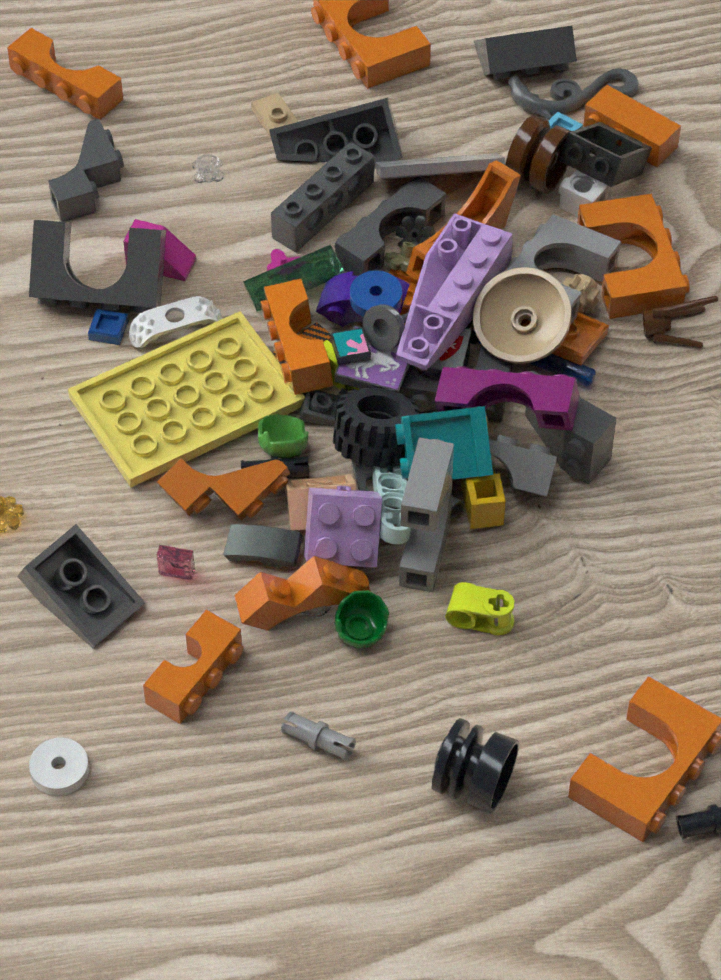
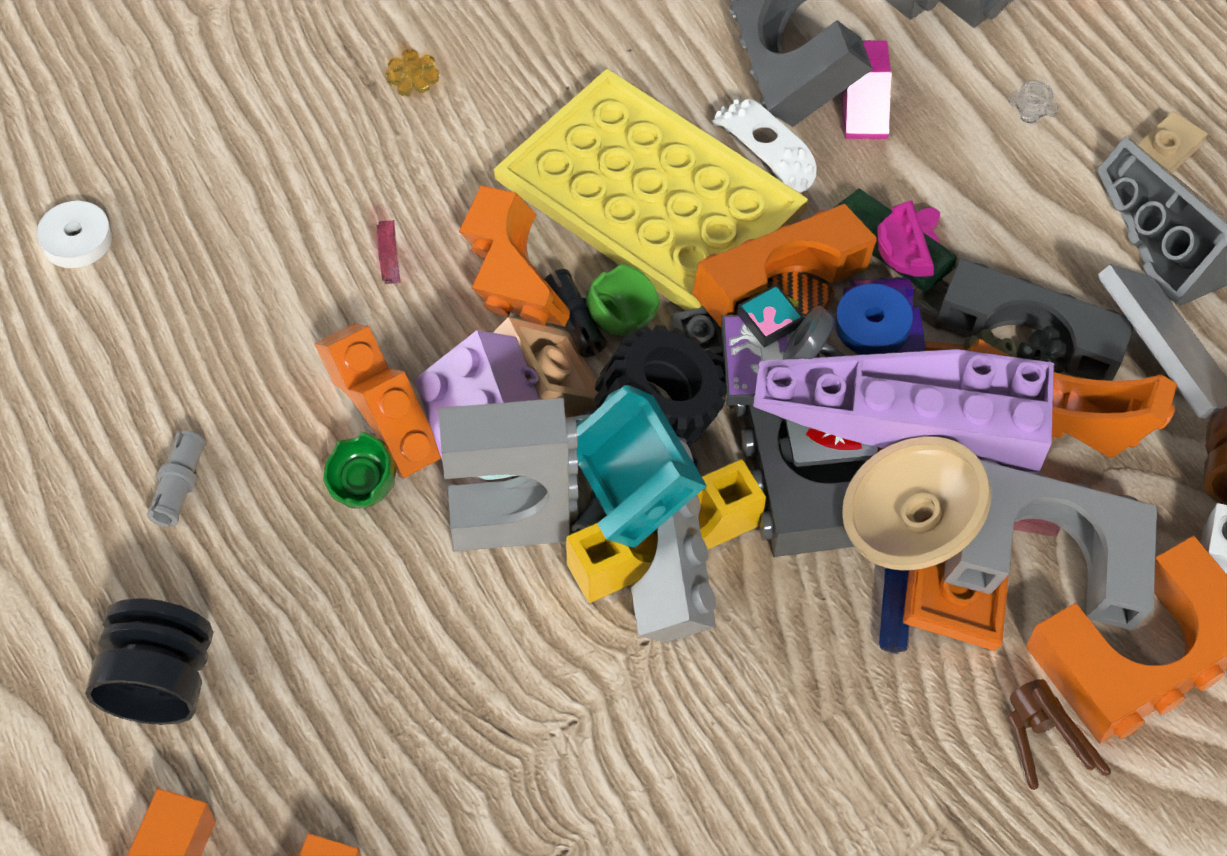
camera: 70 degrees right, 5 degrees up
(81, 587) = (321, 169): dark grey slope -> none
(108, 327) = (731, 82): blue tile -> none
(180, 690) = (273, 329): orange arch -> none
(263, 543) = (444, 323): pearl dark grey slope -> none
(309, 267) = (903, 242): none -> dark pink tile
(322, 197) = (1046, 229): dark grey brick -> none
(478, 607) = (428, 607): neon yellow piece -> none
(549, 397) = (749, 561): magenta arch -> none
(586, 447) = (752, 644): dark grey slope -> none
(588, 288) = (1035, 585): tan gear -> none

